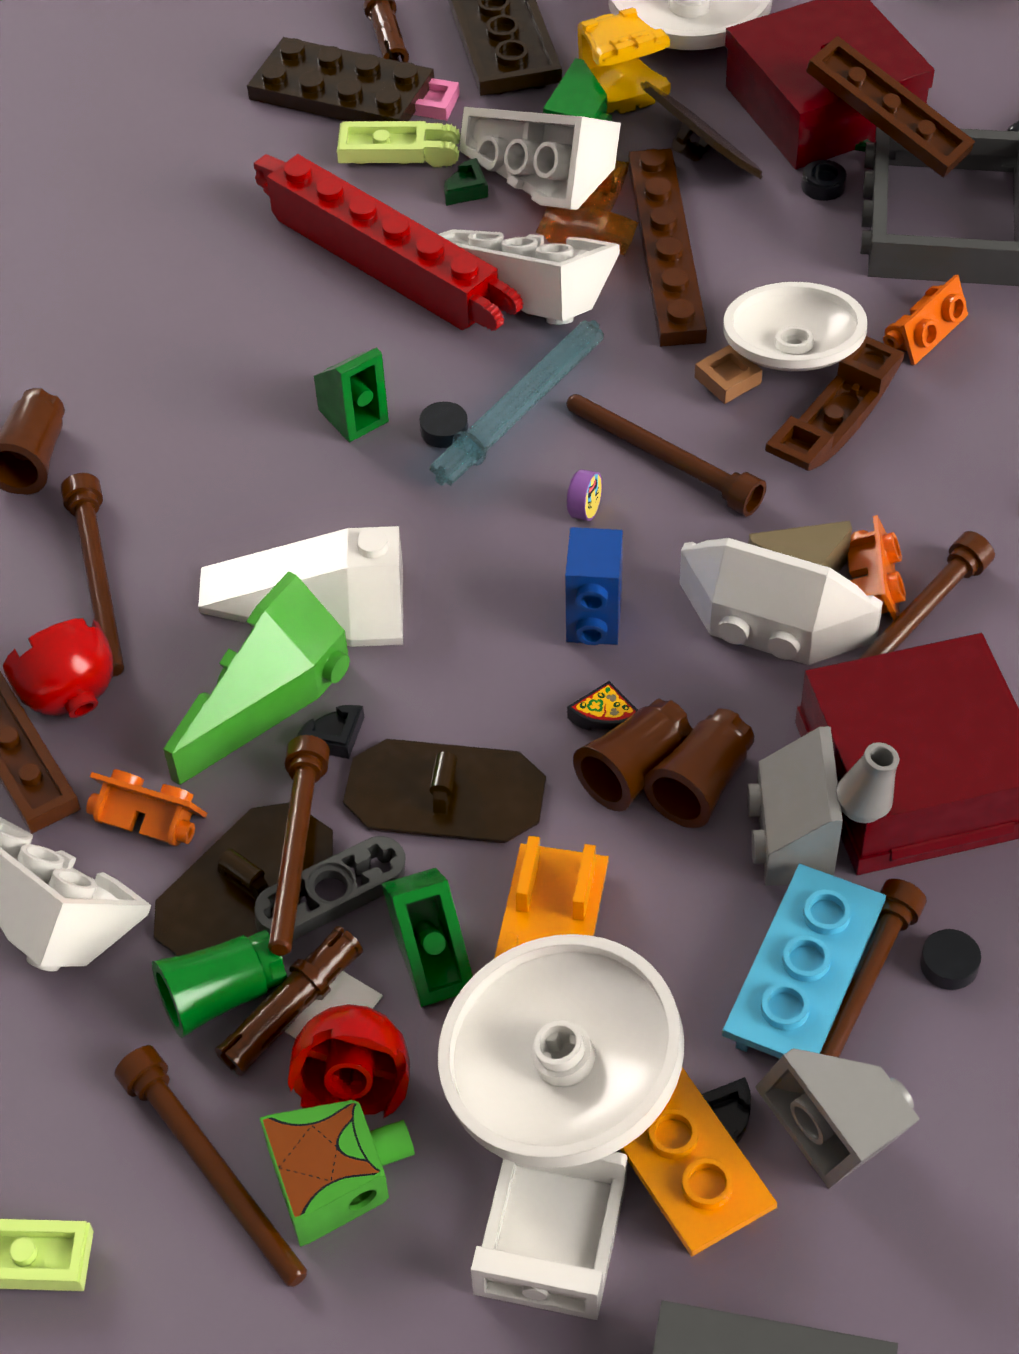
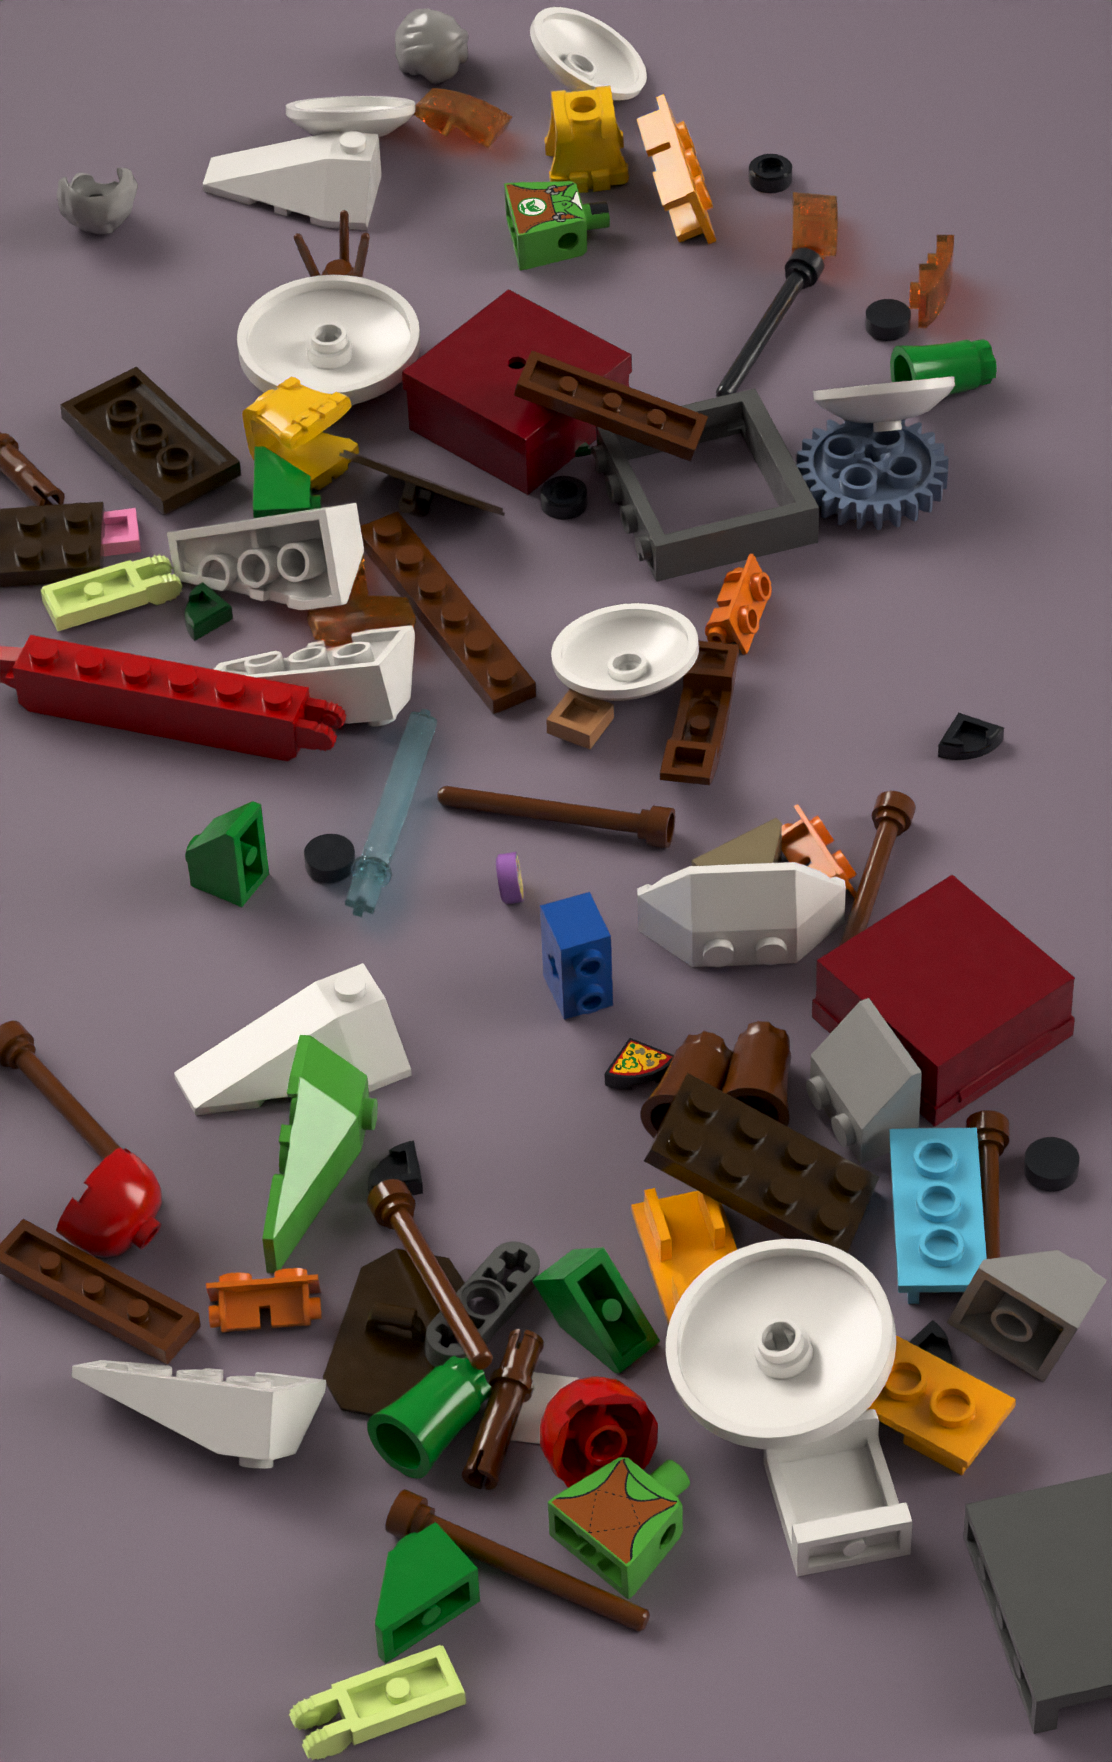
camera: 25 degrees left, 5 degrees down
(101, 1155) = (422, 1590): none -> green slope
(445, 790) = (530, 1187): dark brown shield -> none
(652, 858) = (760, 1167): none -> dark brown plate
(869, 785) = (932, 1031): light grey cone -> none

